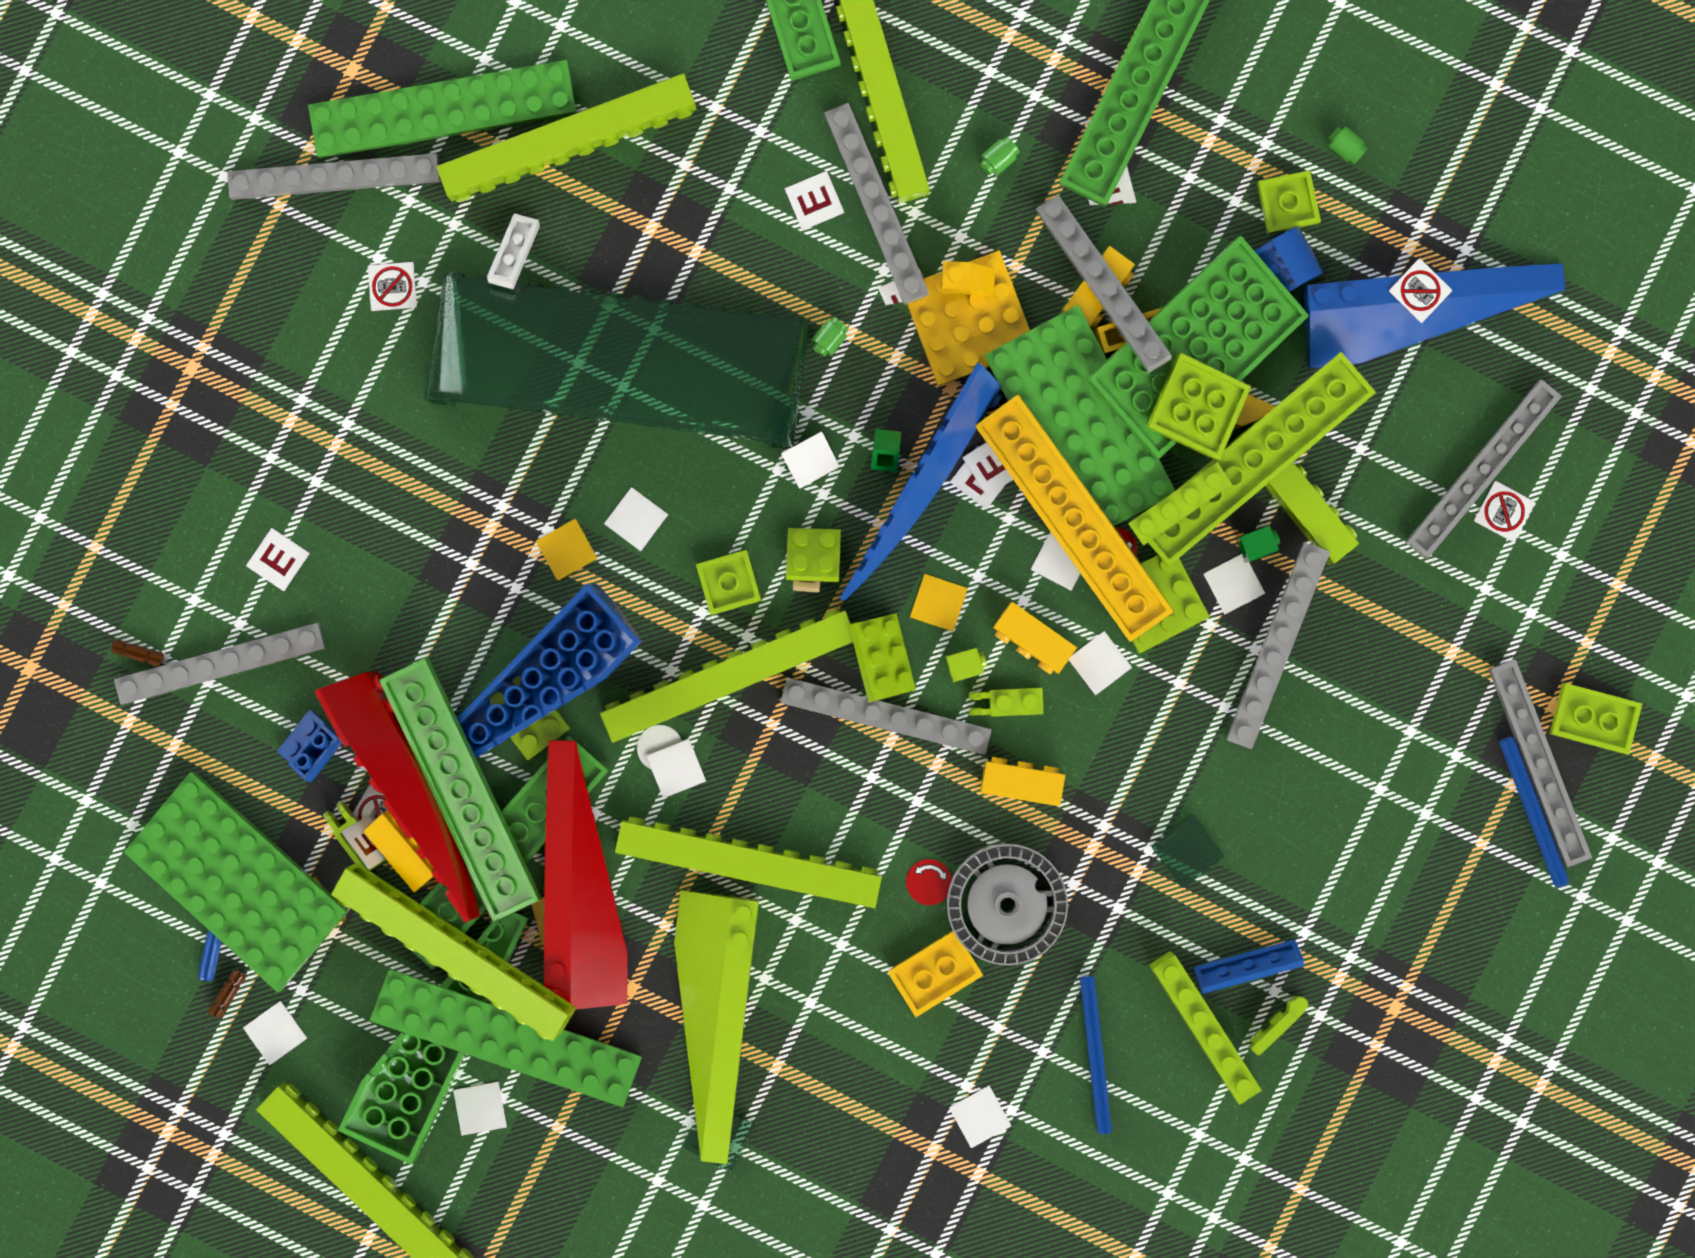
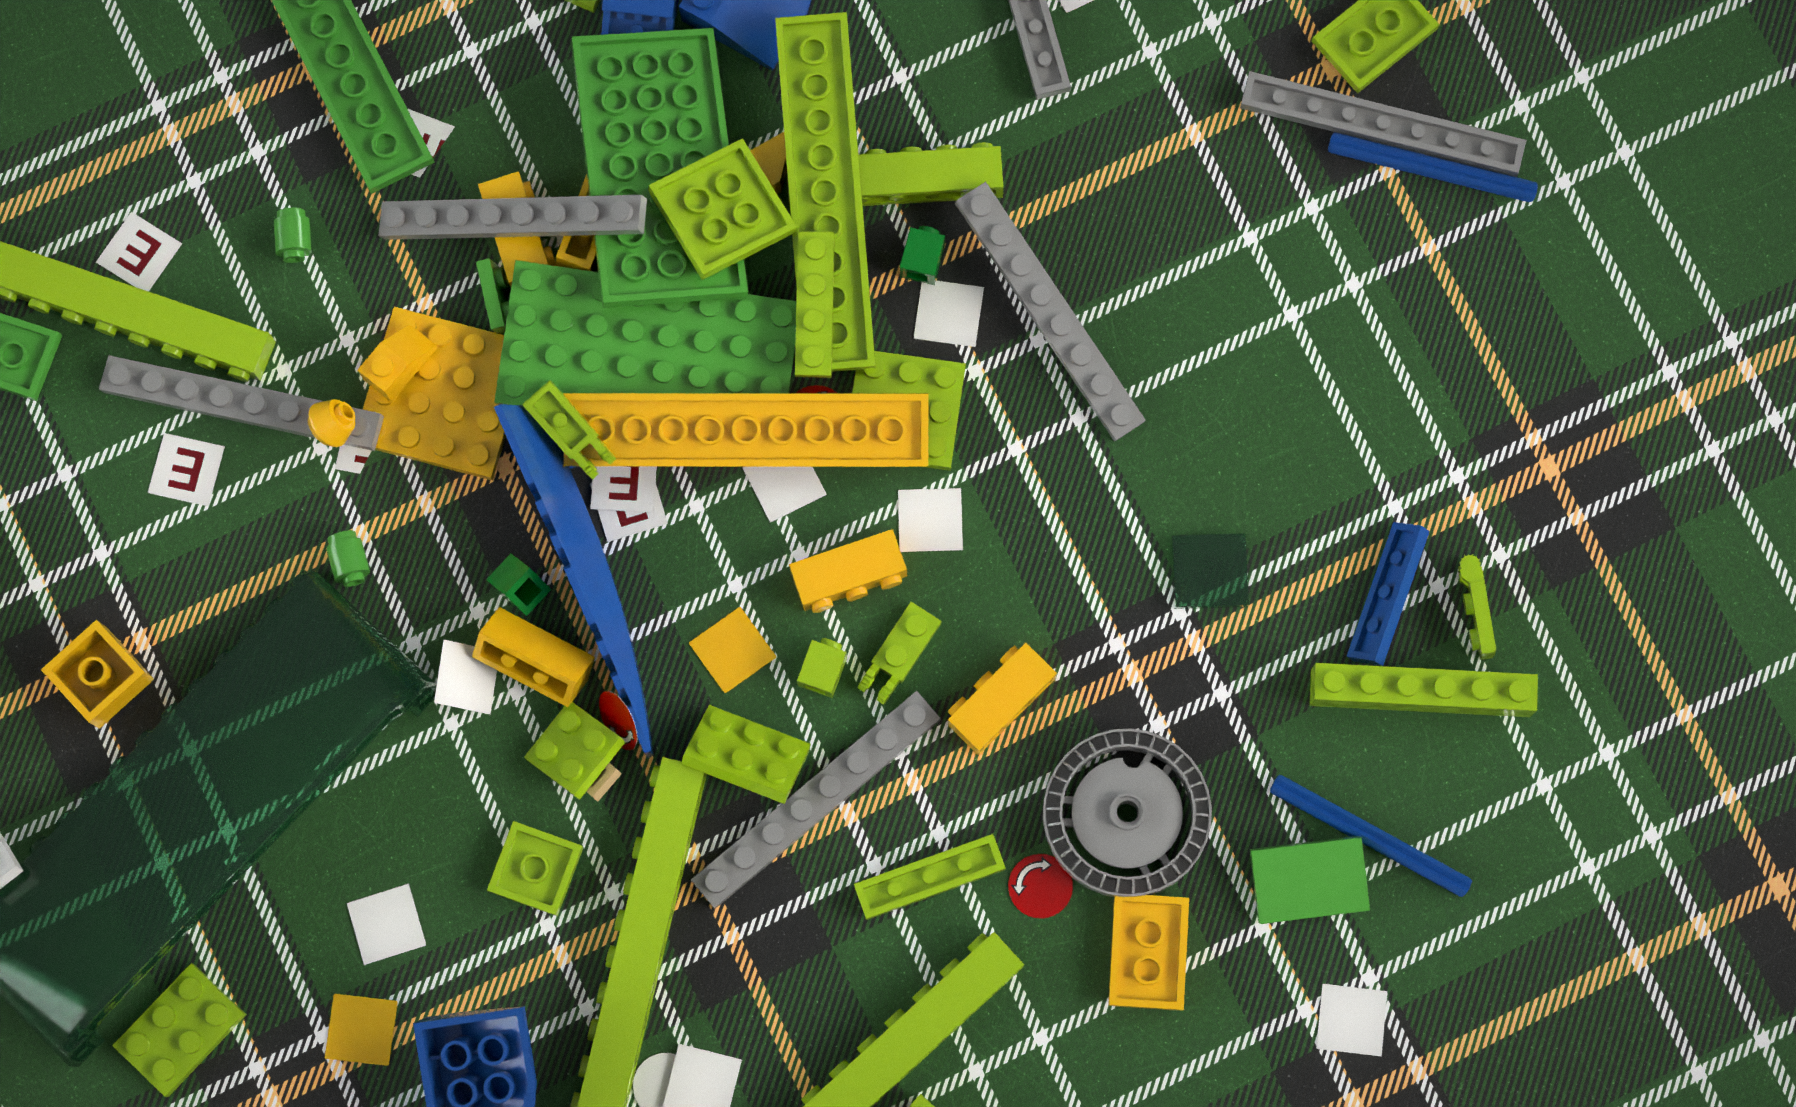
camera: 50 degrees left, 10 degrees down
(491, 445) = (179, 1030): none -> lime plate
(656, 243) = (97, 674): none -> yellow brick
(849, 490) = (533, 656): none -> yellow brick
(849, 567) = (618, 718): none -> red sticker
(887, 815) = (929, 876): none -> lime plate
(901, 269) = (331, 422): none -> yellow cone
(923, 72) = (138, 252): none -> white sticker
(998, 411) = (566, 426): none -> lime hinge
(1044, 1037) = (1309, 879): none -> bright green tile
(1056, 299) = (493, 281): none -> bright green plate

